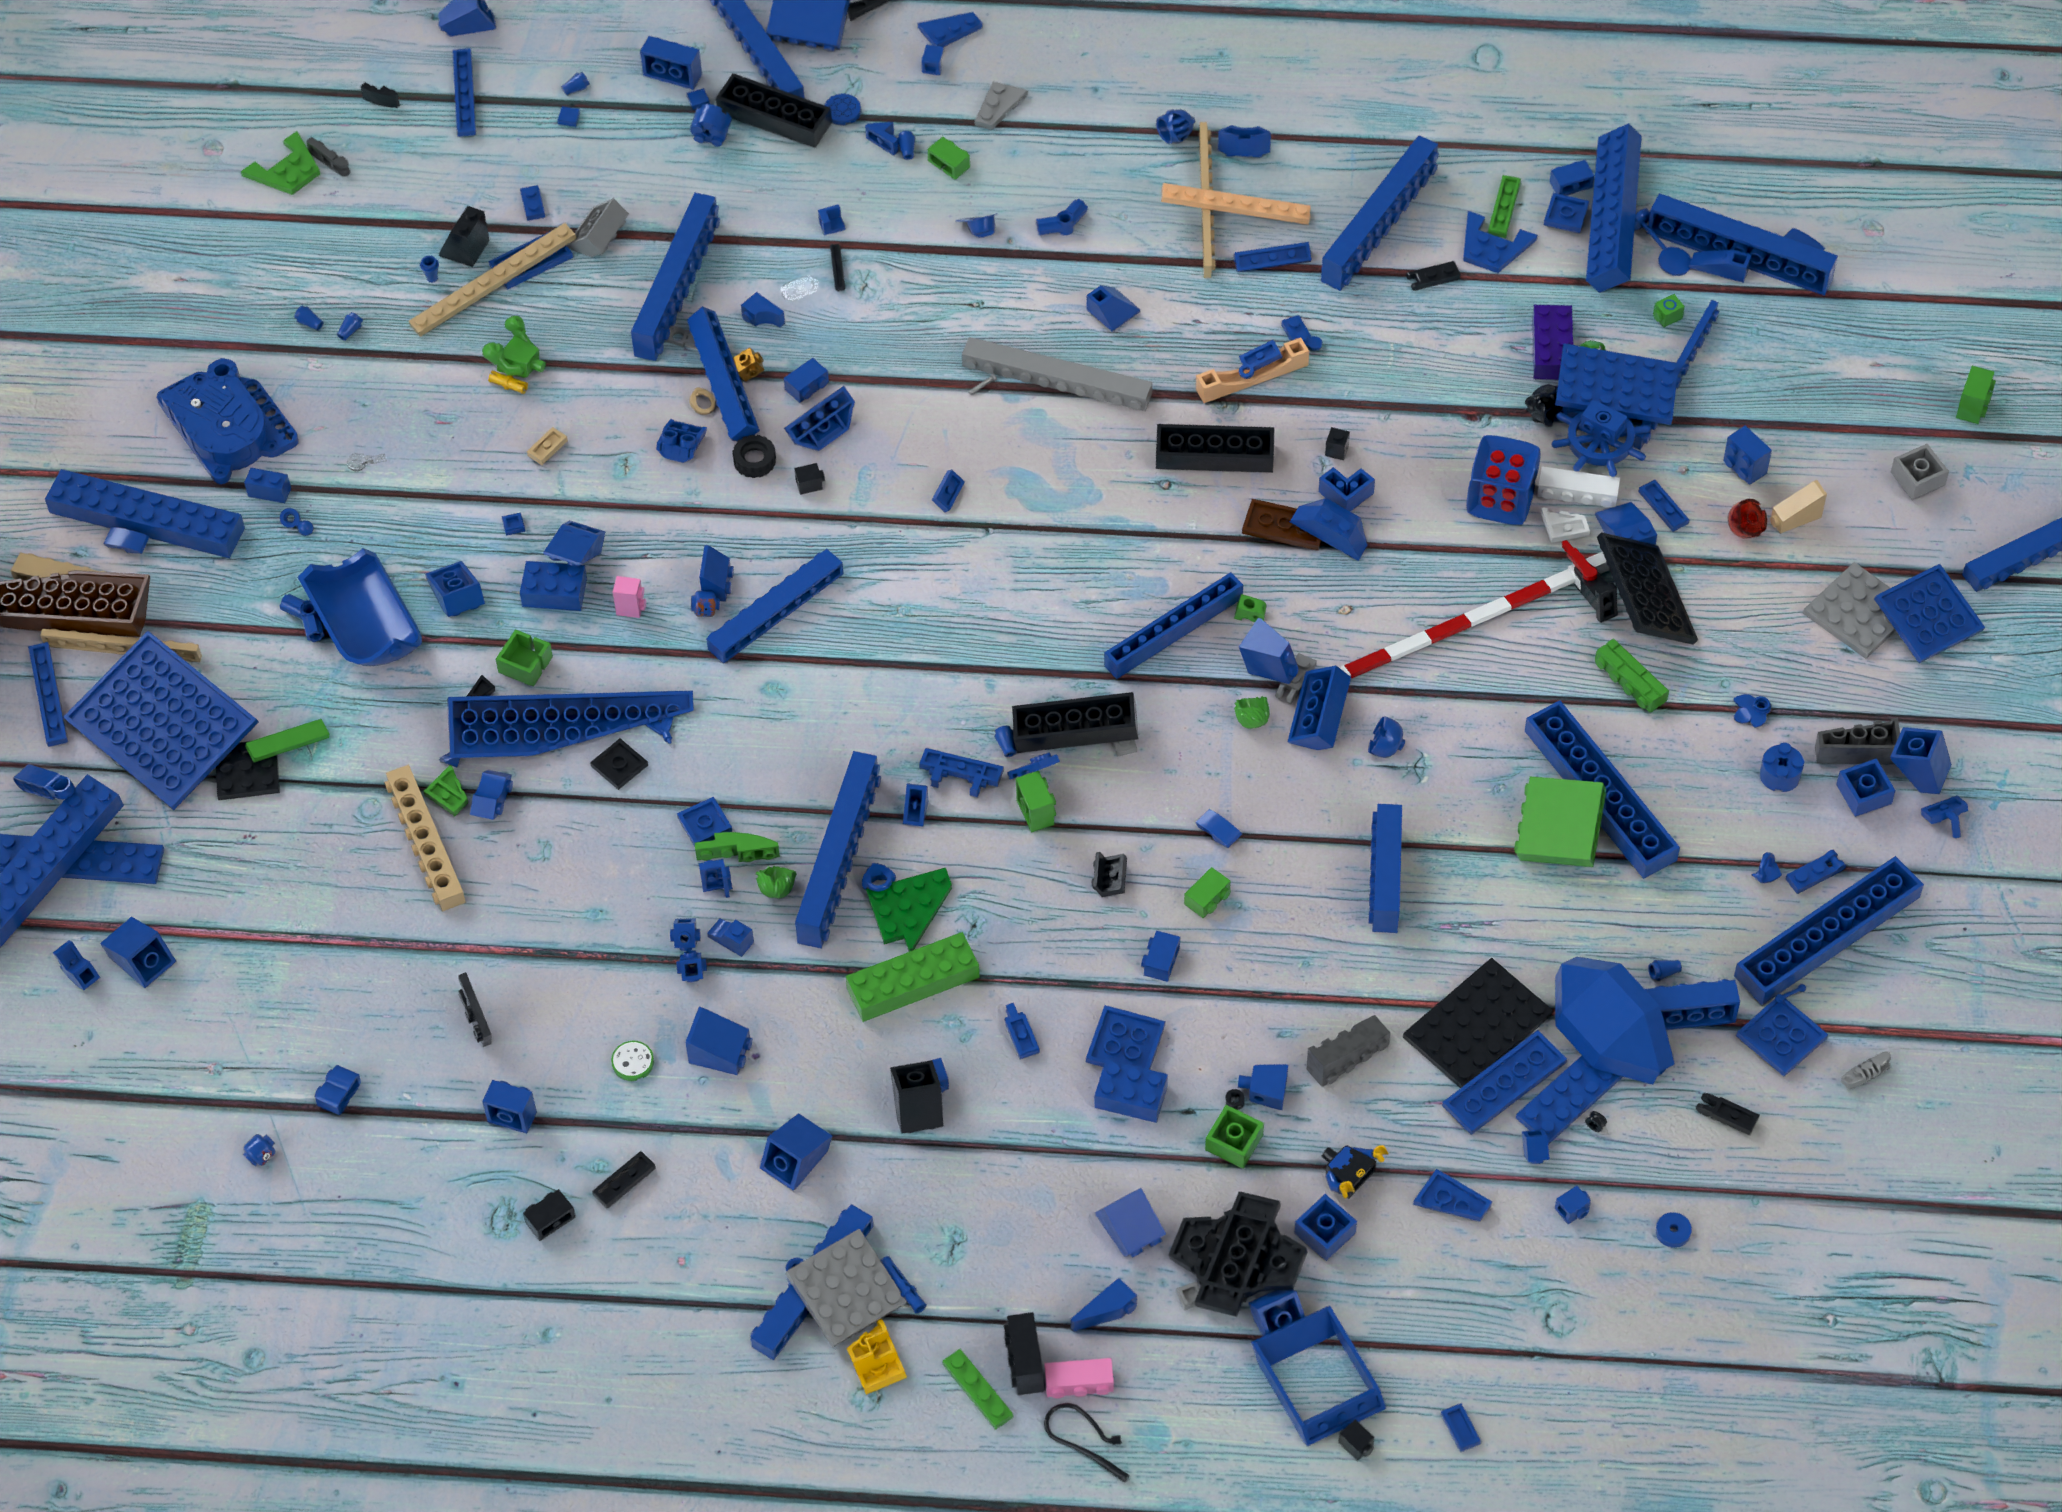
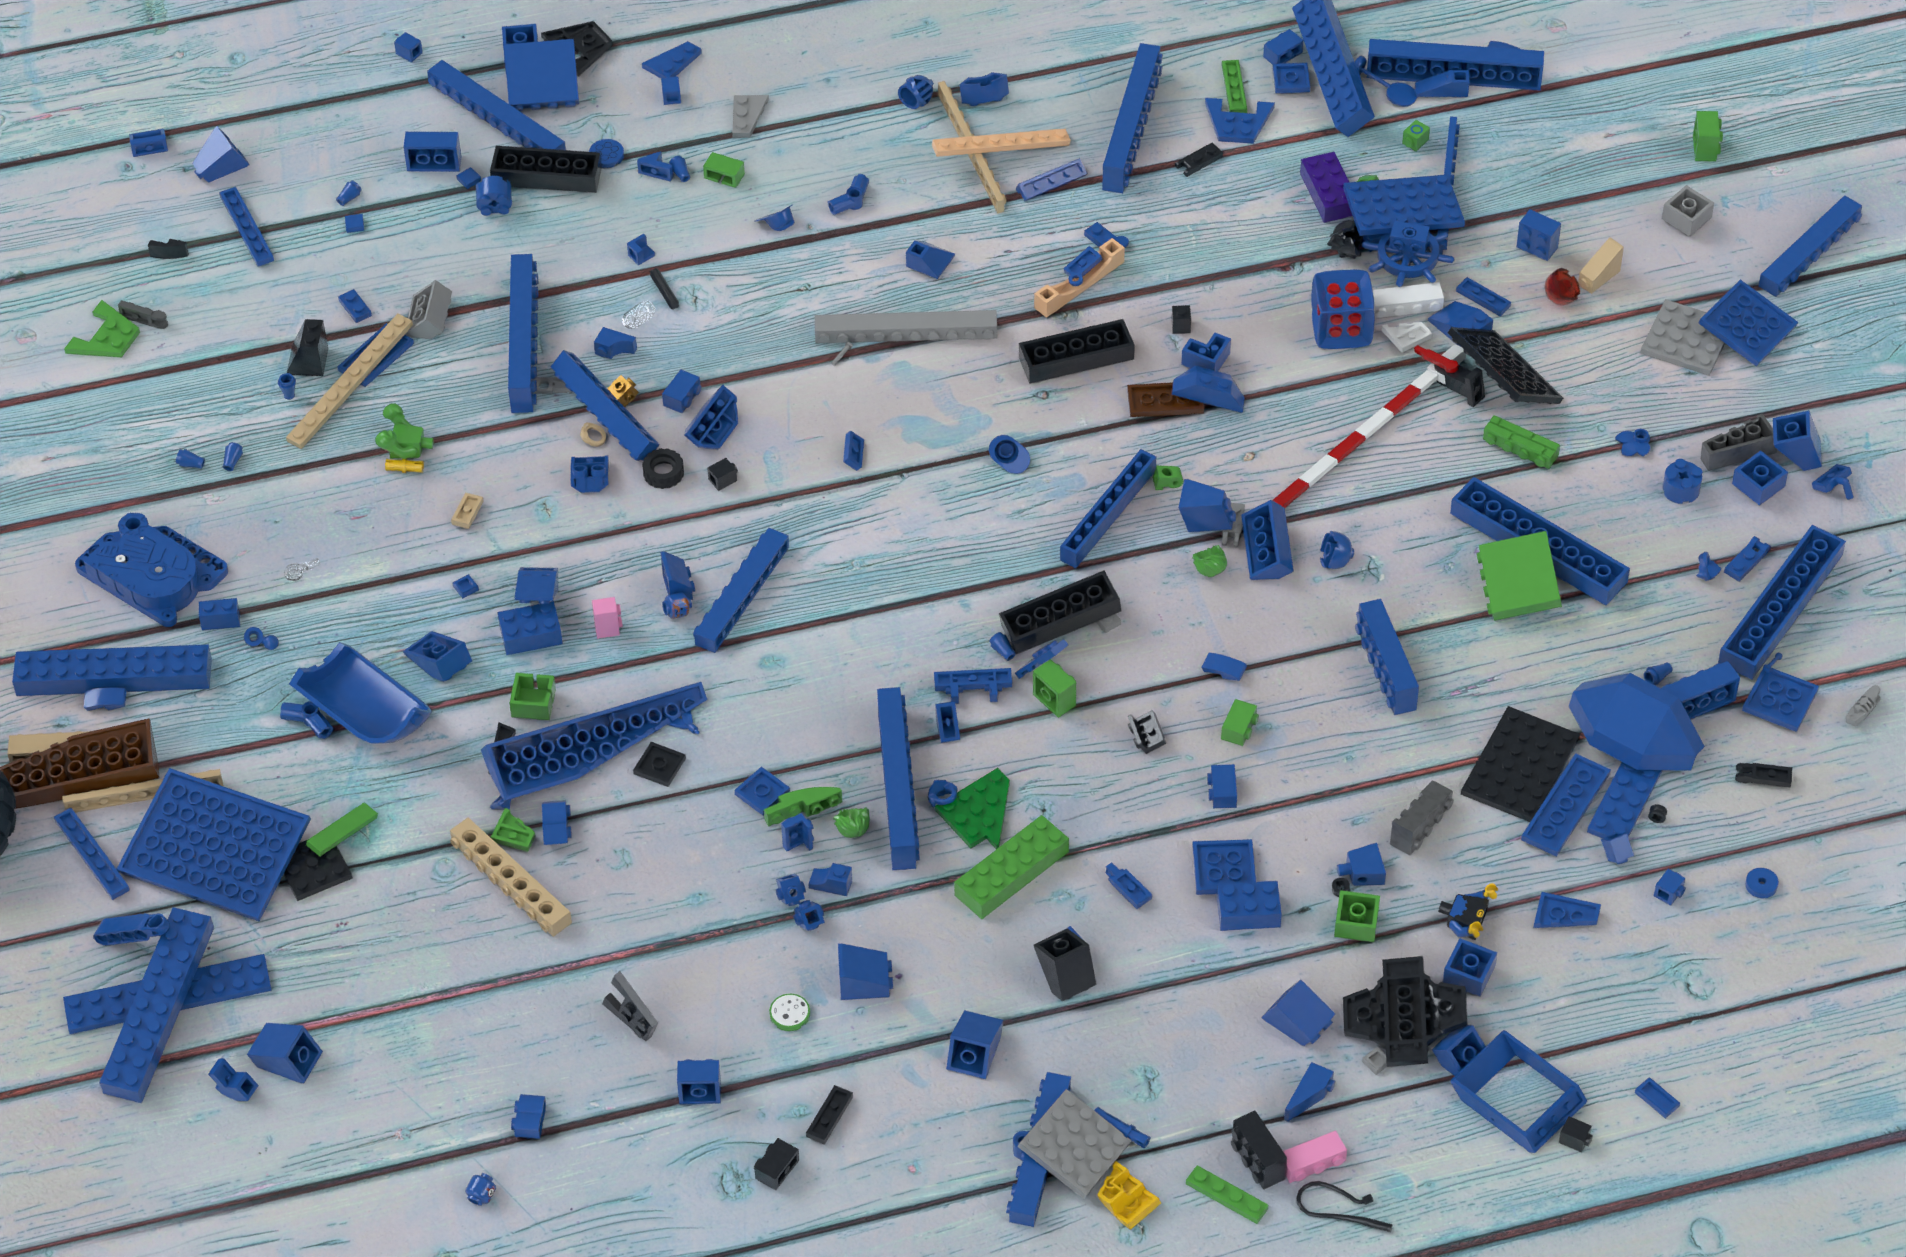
camera: 20 degrees left, 5 degrees down
(1099, 539) = (1009, 454): none -> blue piece

